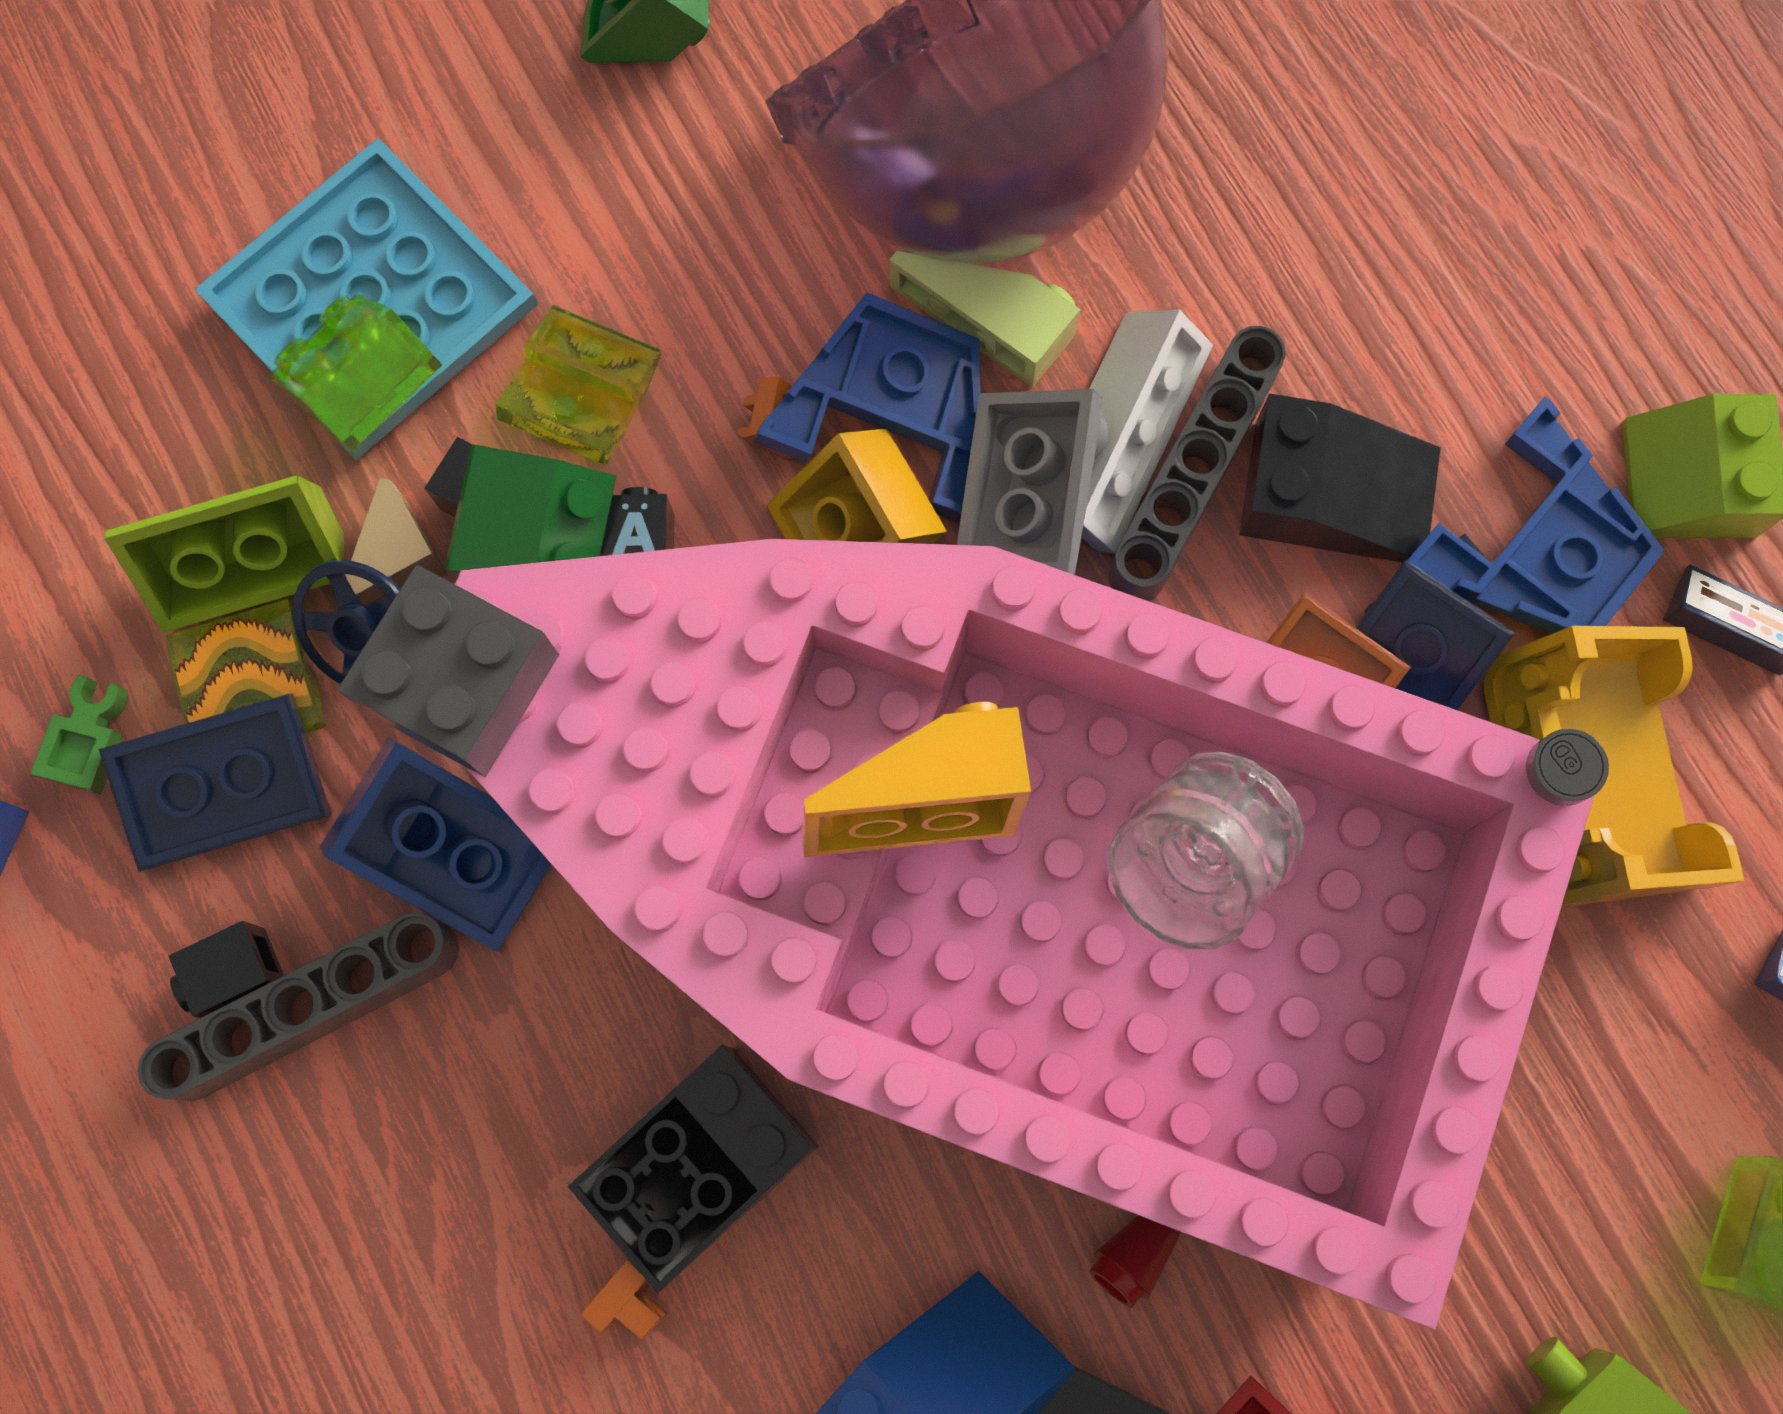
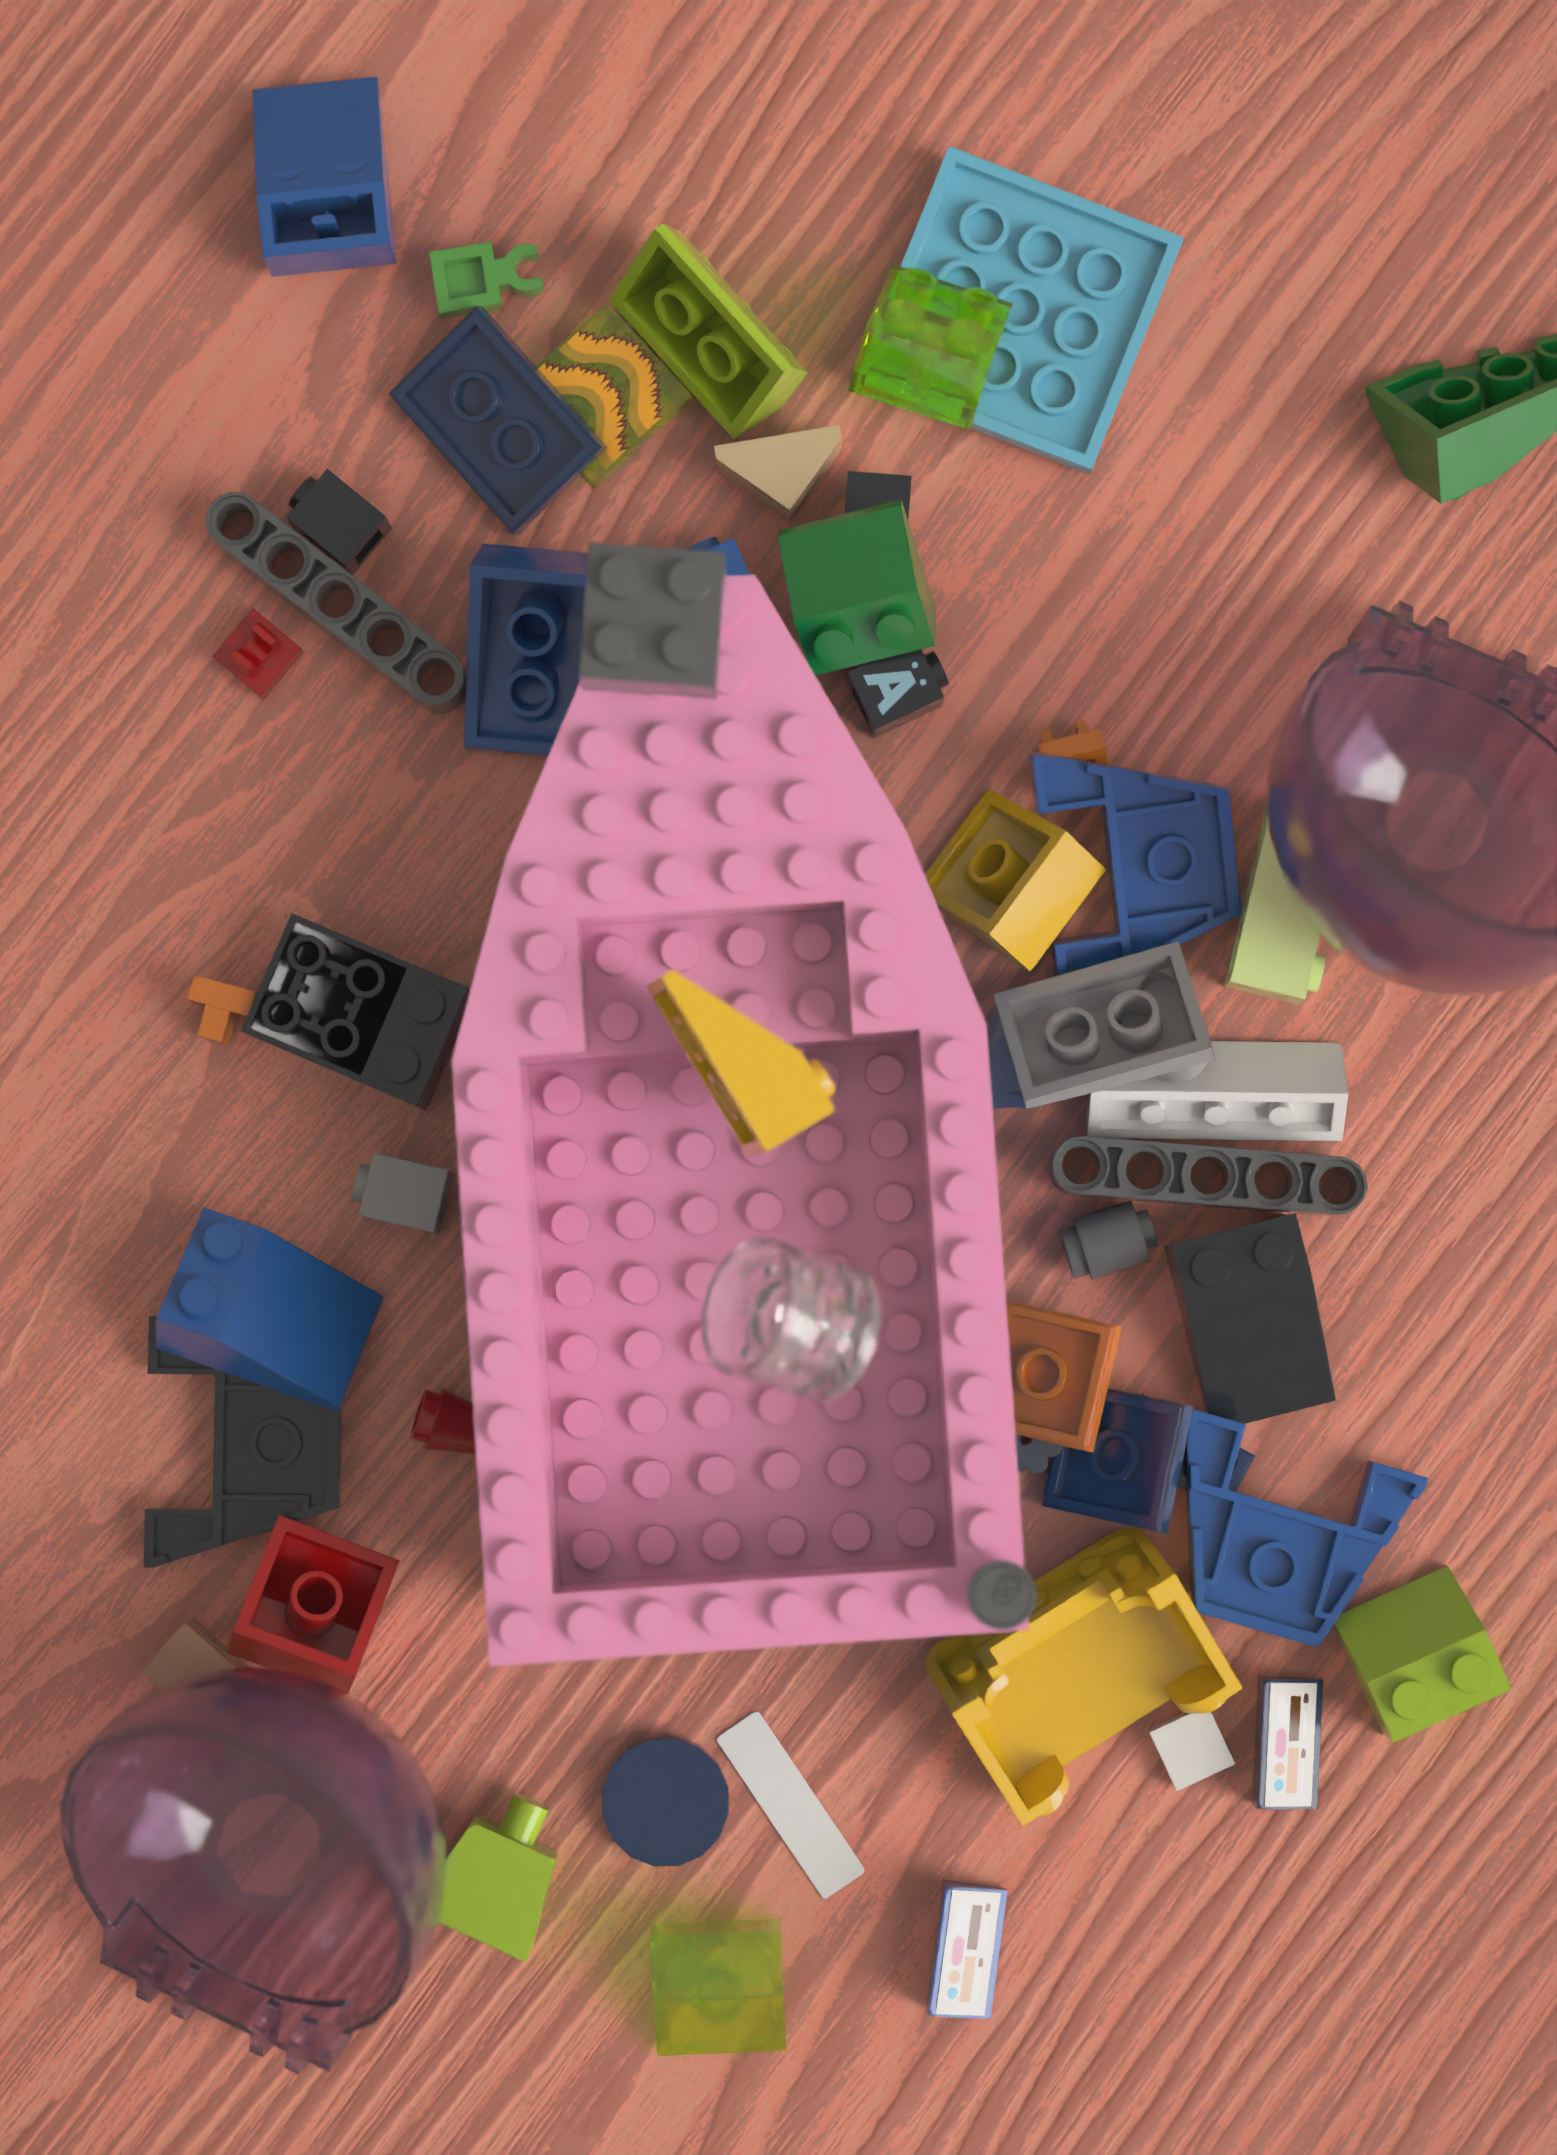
camera: 65 degrees right, 10 degrees up
(311, 1108) = (258, 654): none -> red tile
(352, 622) = (691, 480): dark blue wheel -> none
(578, 384) = (1026, 554): clear neon green slope -> none
(888, 1205) = (402, 1192): none -> light grey brick
(1218, 573) = (1108, 1240): none -> dark grey brick
(1586, 1216) = (665, 1801): none -> dark blue tile
(1629, 1096) = (790, 1805): none -> white sticker
(1713, 705) = (1191, 1748): none -> white tile

